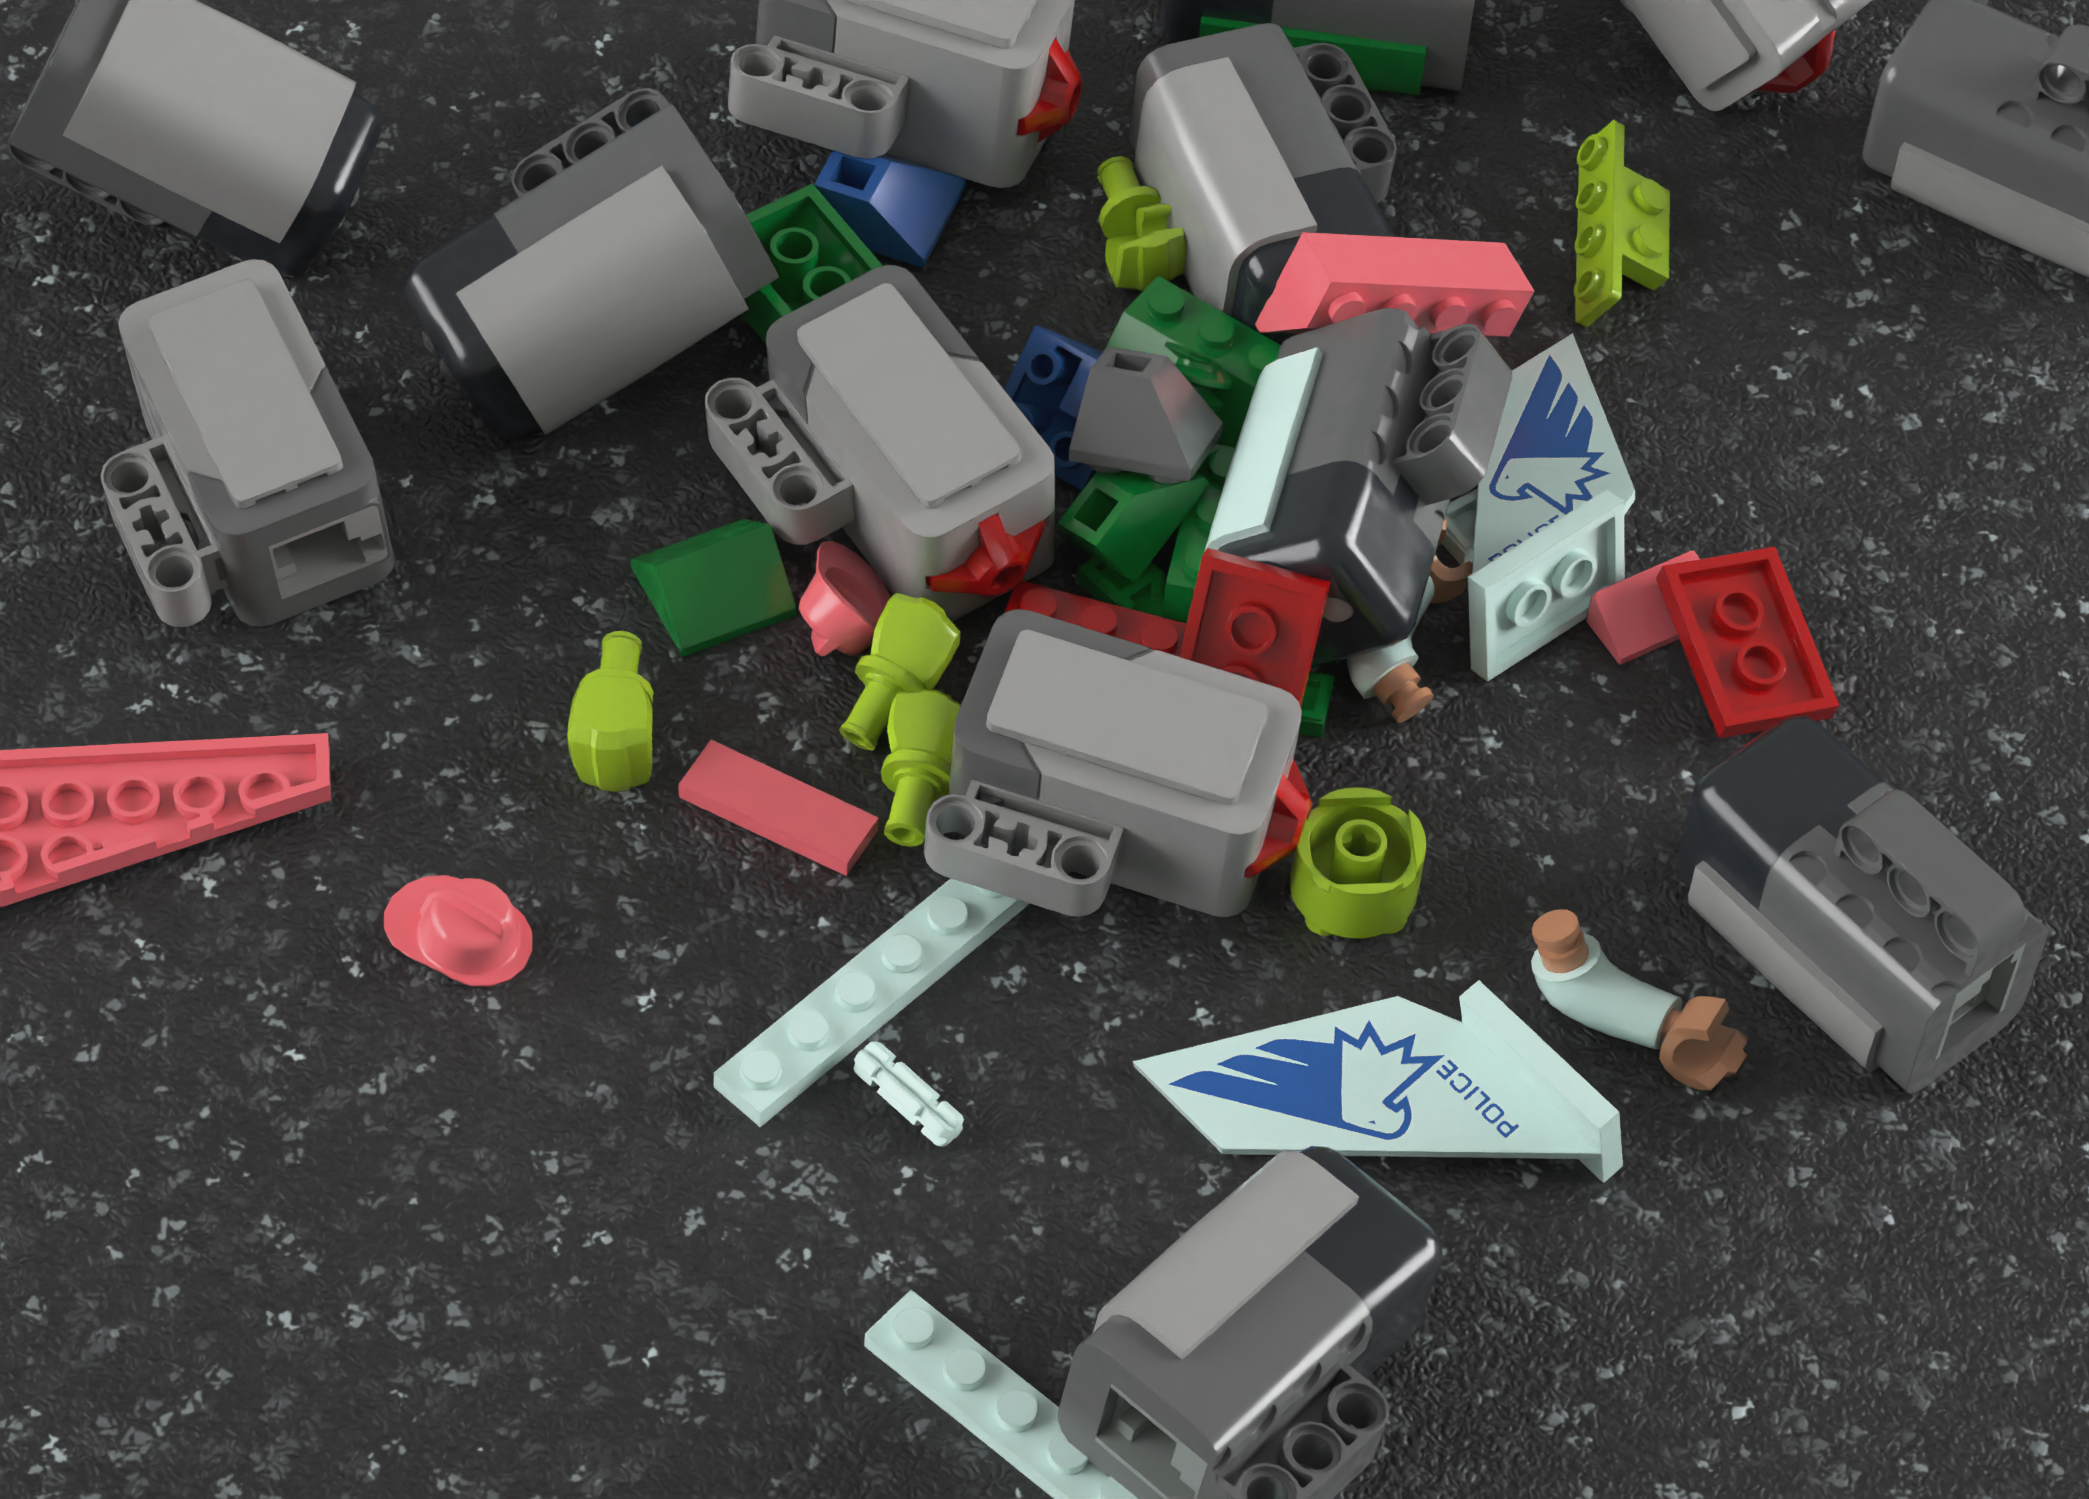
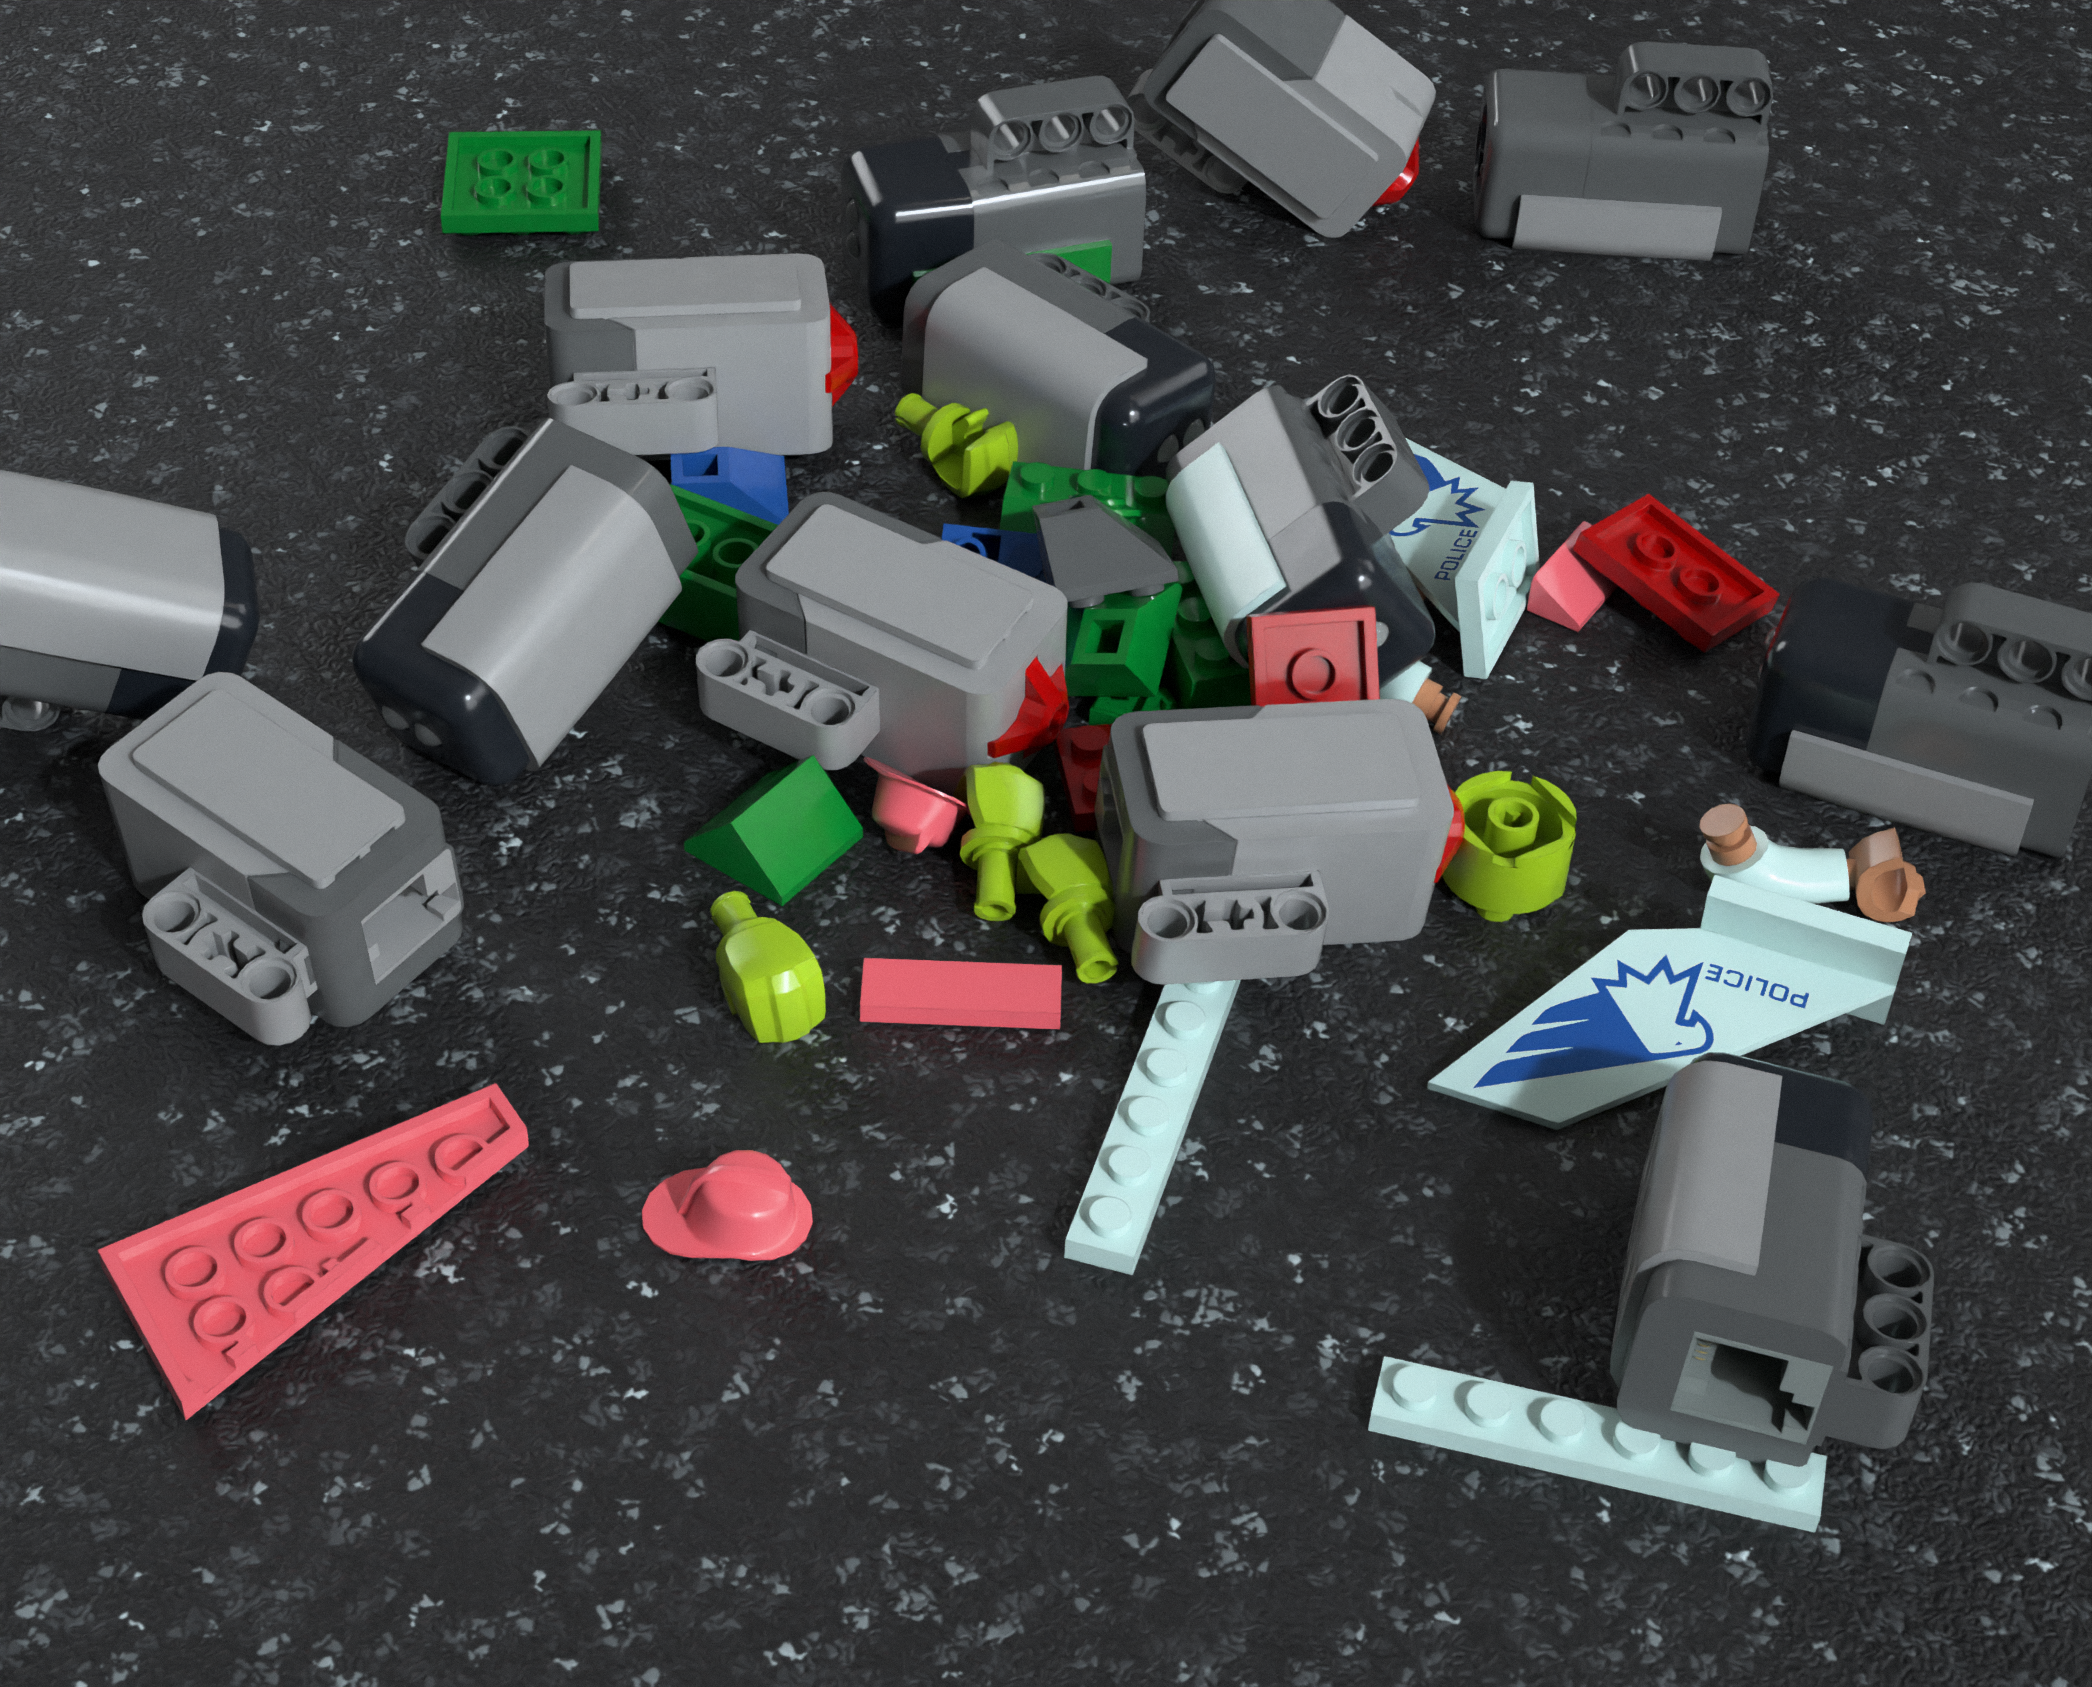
camera: 25 degrees left, 10 degrees down
(908, 1094) = (1253, 1187): light aqua axle -> none
(1430, 279) = (1199, 388): coral slope -> none
(1619, 226) = (1330, 322): lime bracket -> none

